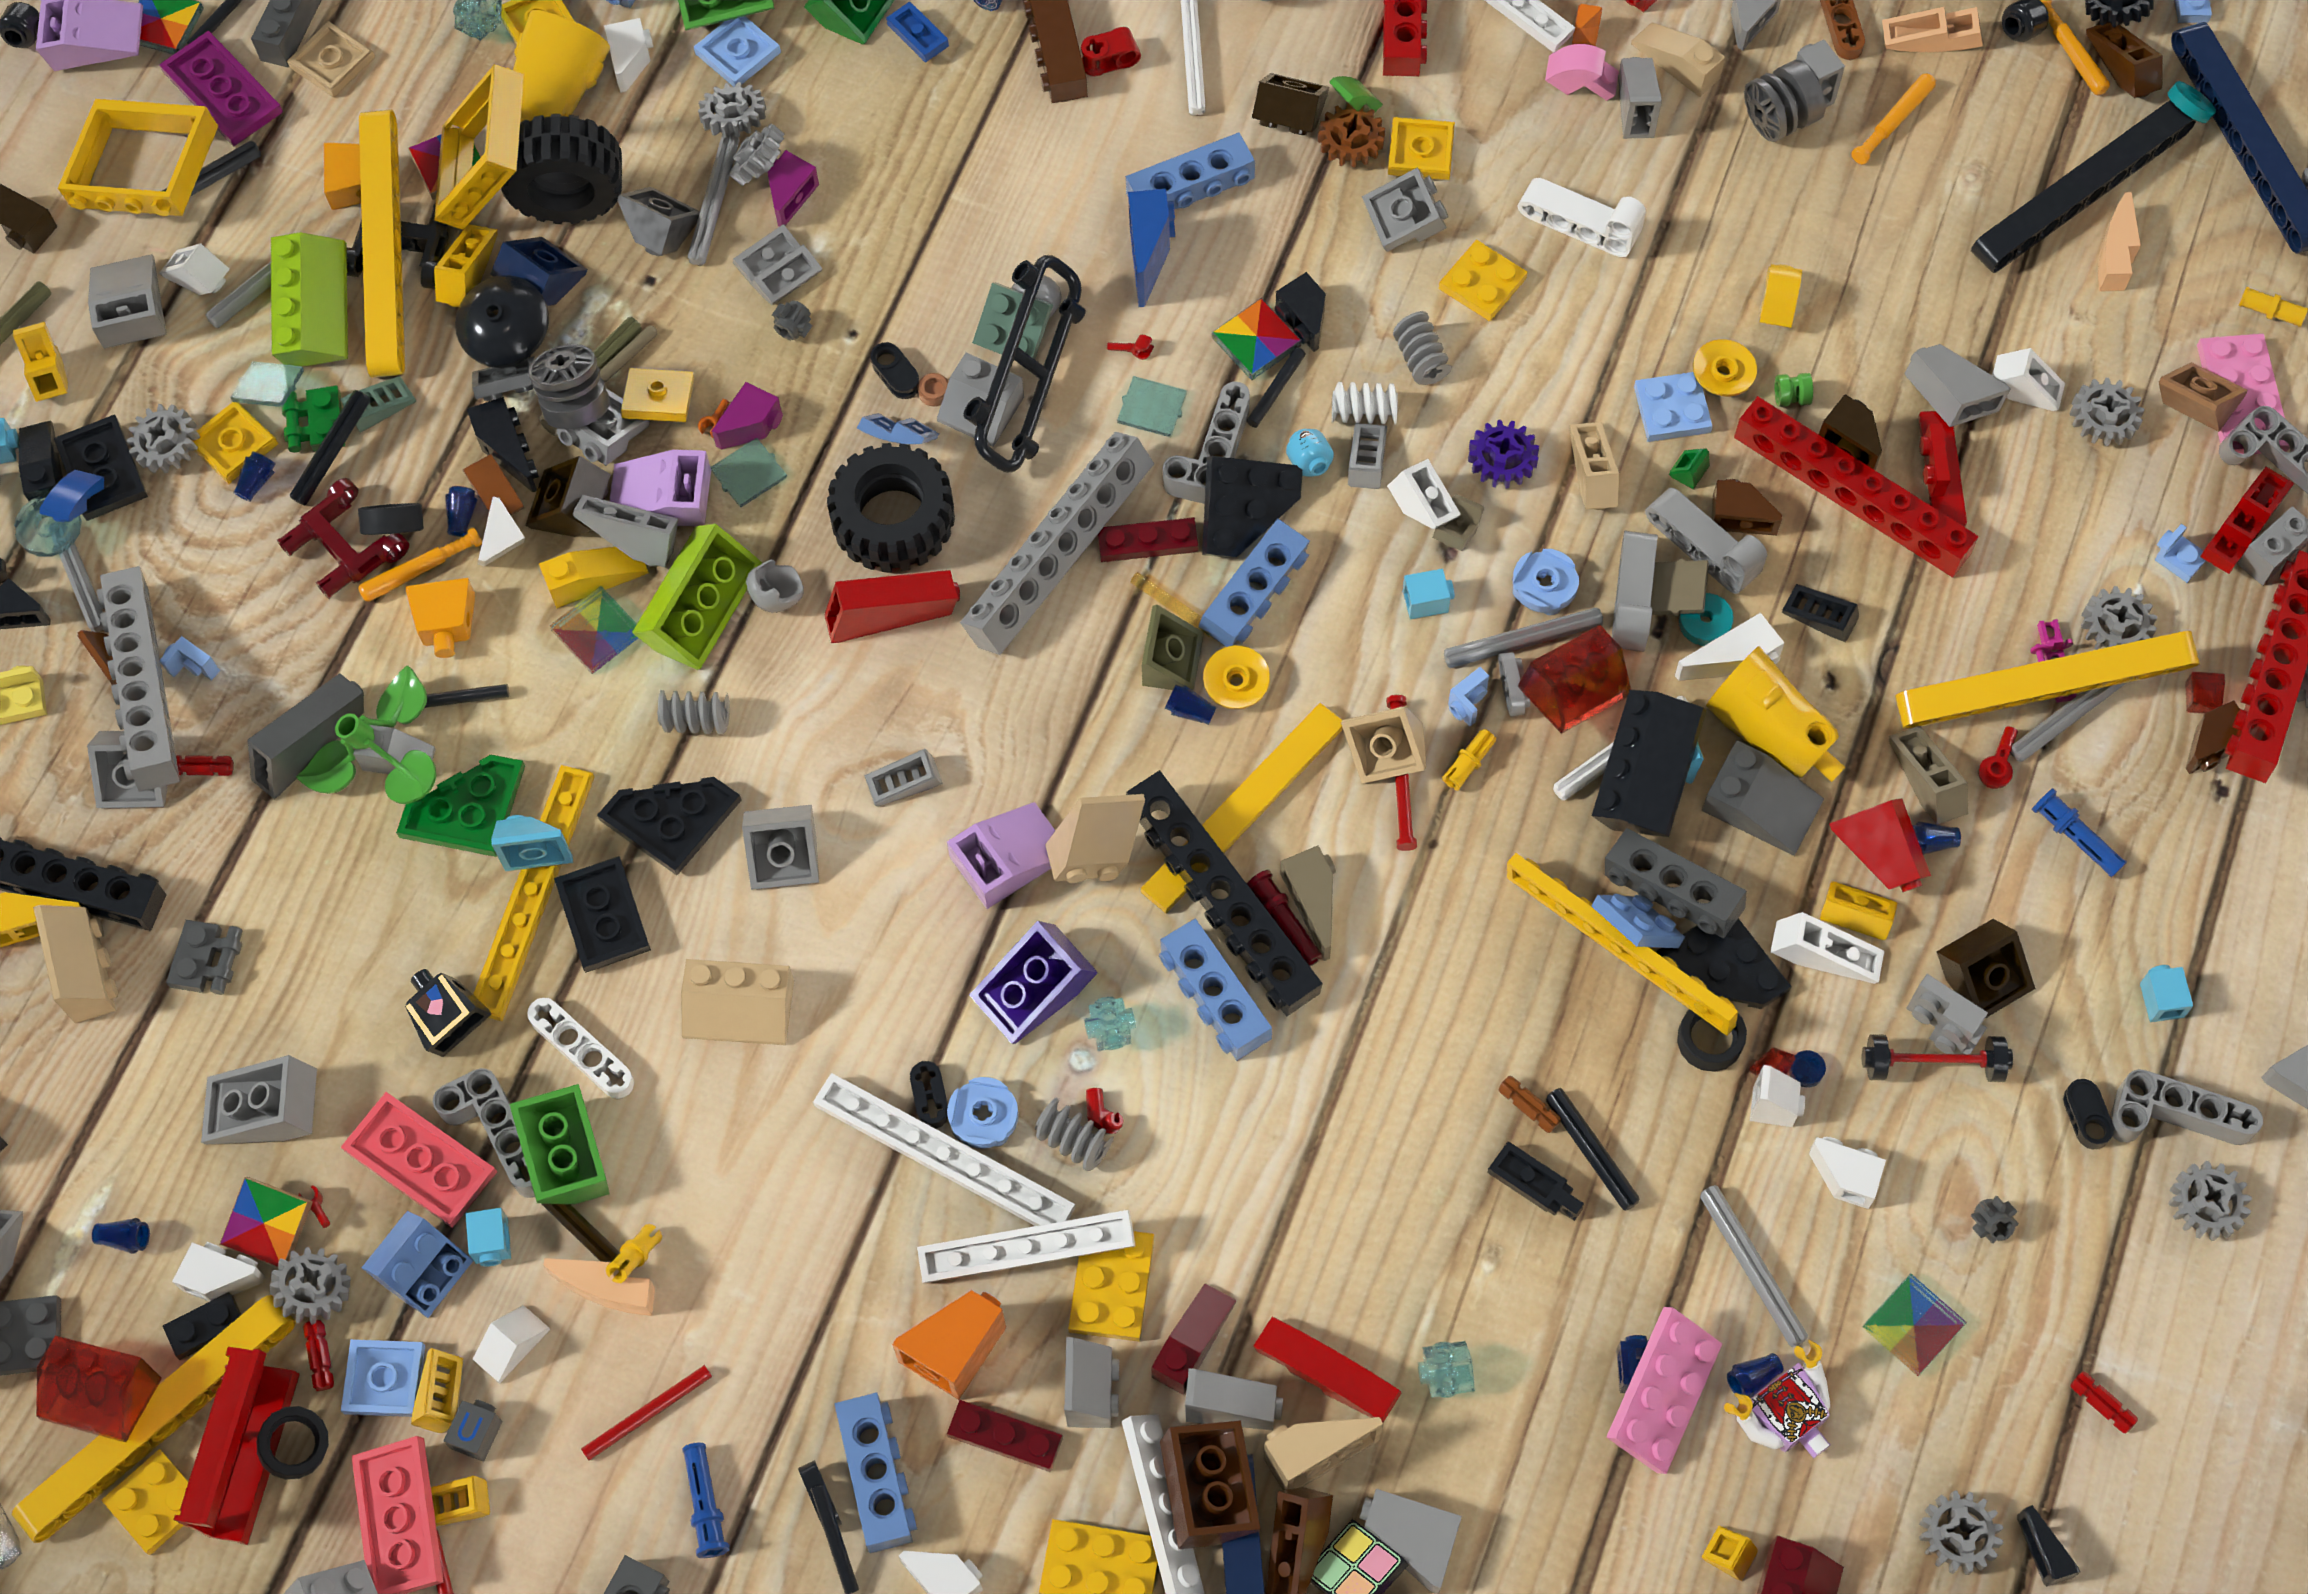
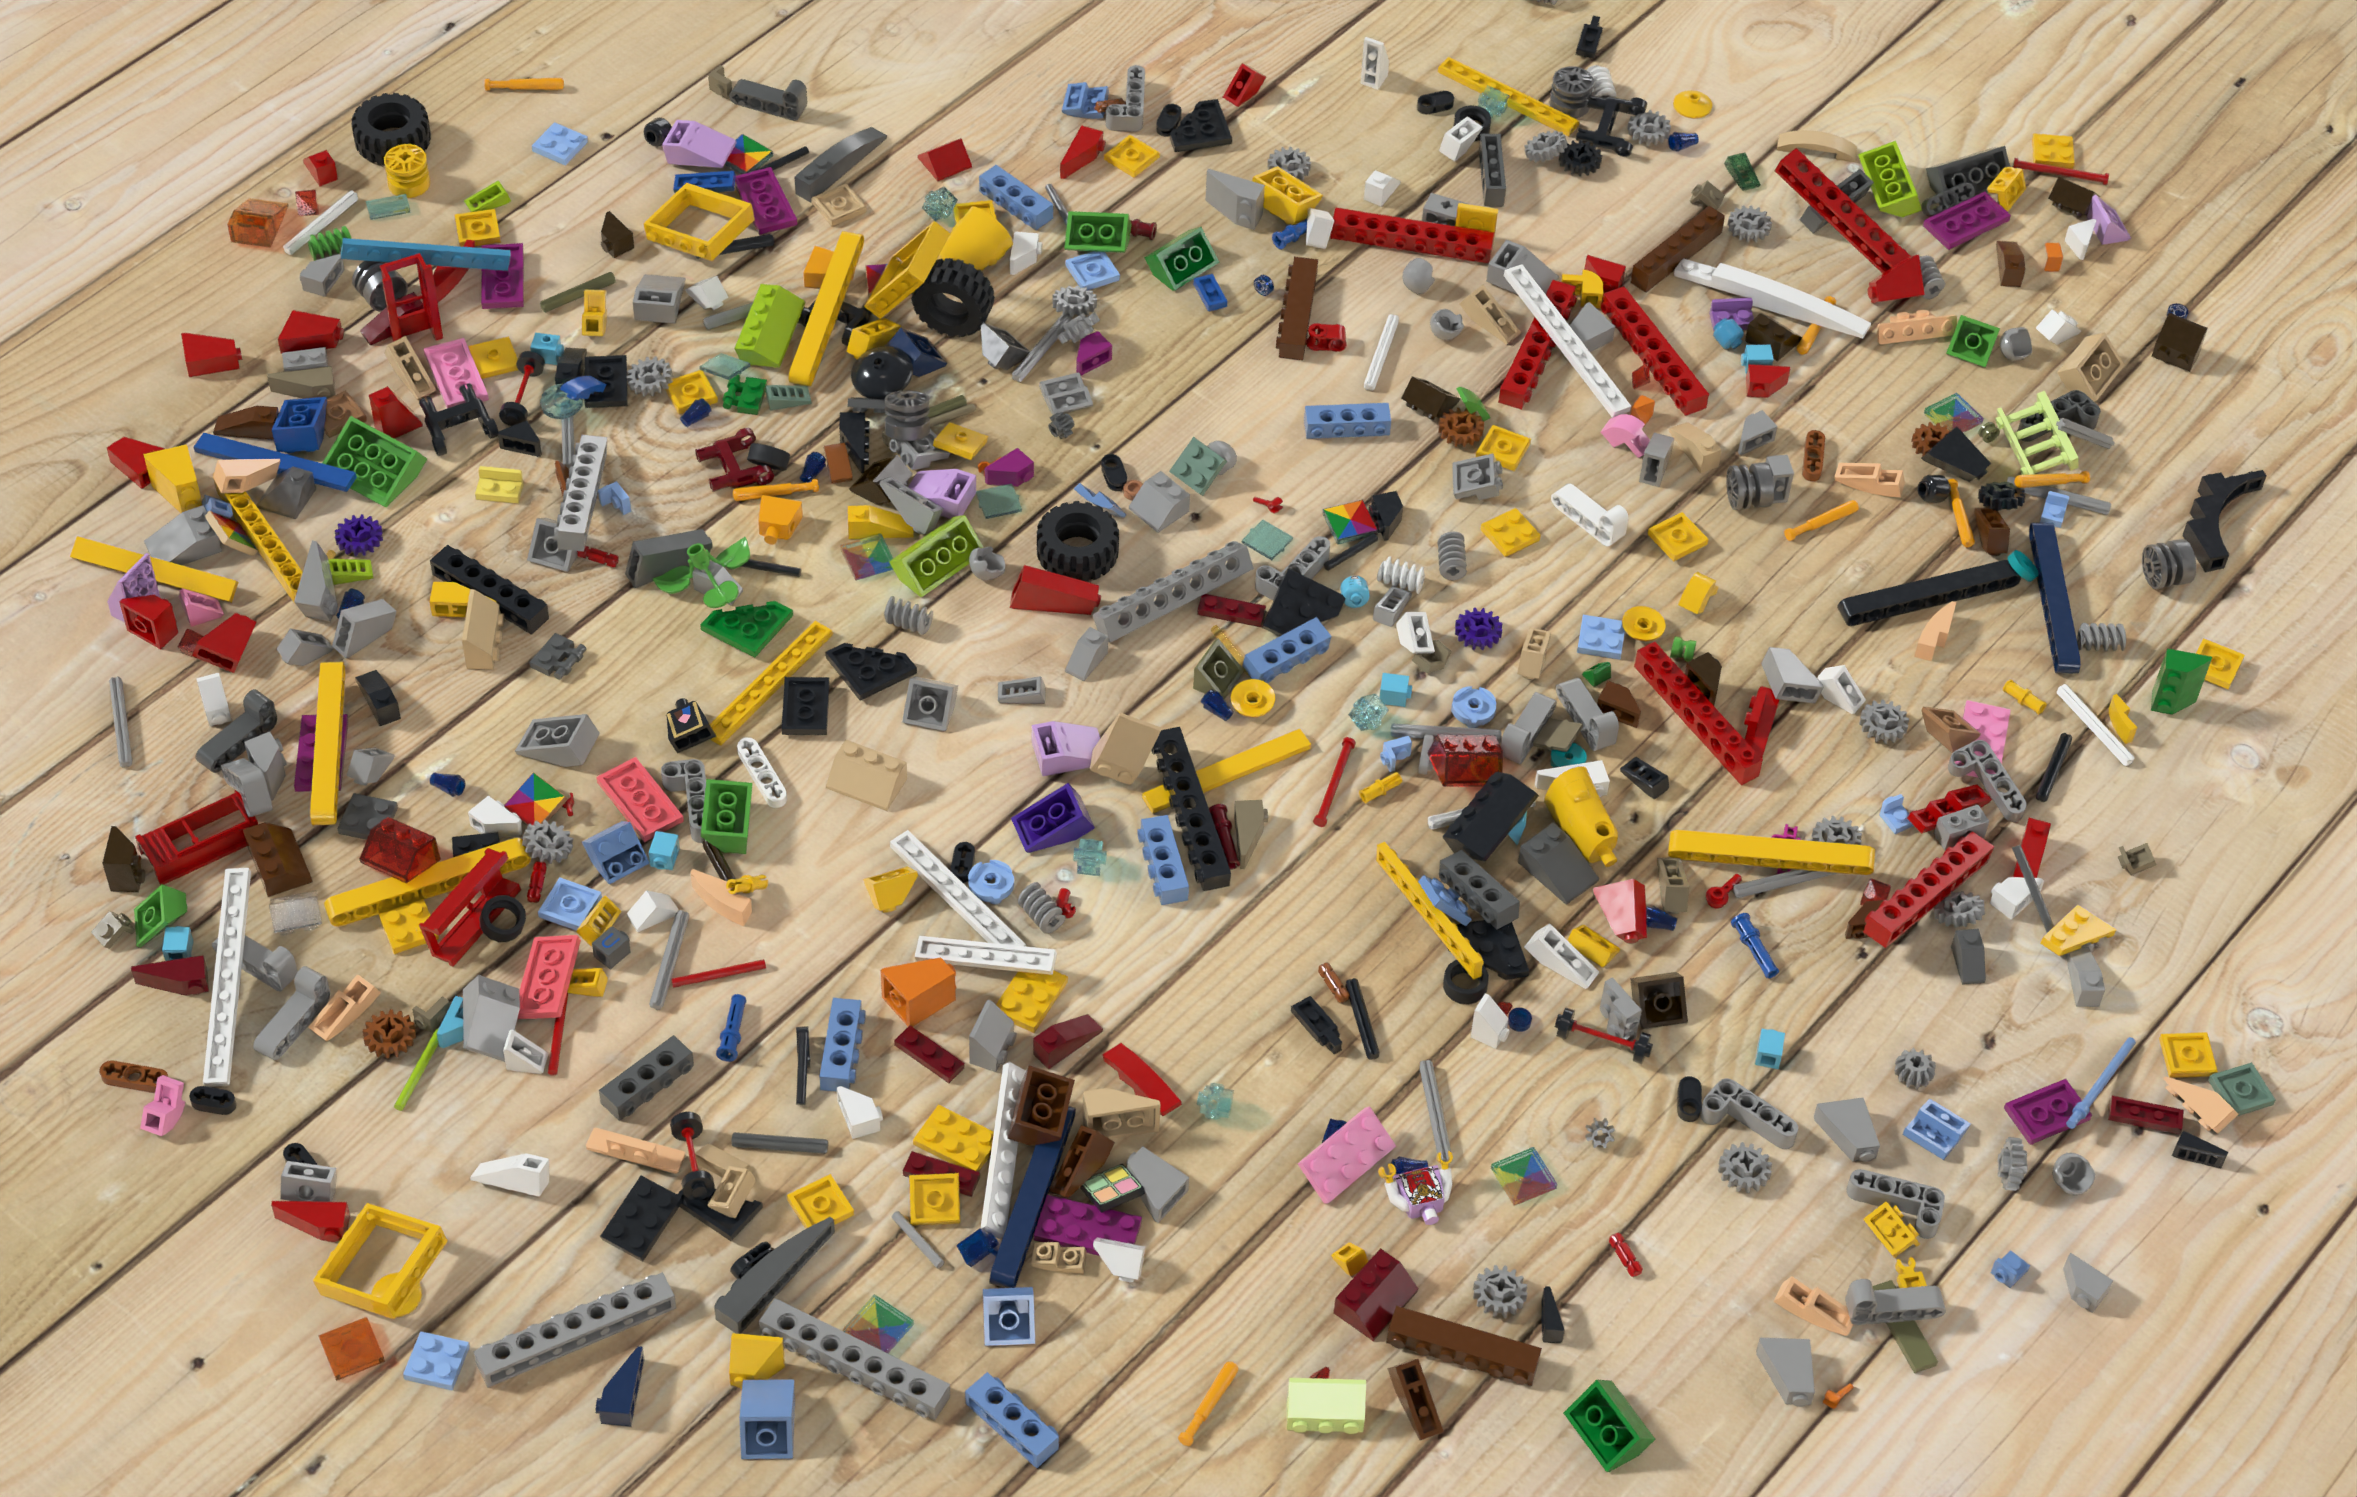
camera: 15 degrees right, 15 degrees down
(125, 85) = (713, 181): none -> blue plate
(330, 447) = (748, 409): black axle -> none
(500, 534) = (830, 487): white slope -> none
(529, 843) = (777, 652): medium azure slope -> none
(566, 1418) = (669, 960): none -> light grey axle
(843, 1177) = (890, 888): none -> yellow slope
(975, 686) = (1087, 654): none -> light grey slope
(982, 412) = (1156, 503): black bar -> none
(1150, 232) = (1304, 444): blue slope -> none
(1228, 1398) = (1067, 1063): light grey slope -> none
(1386, 744) = (1330, 758): tan slope -> none
(1407, 645) = (1368, 712): none -> clear light blue brick
(1713, 211) = (1677, 536): none -> yellow plate
(1848, 1172) = (1519, 1080): white slope -> none

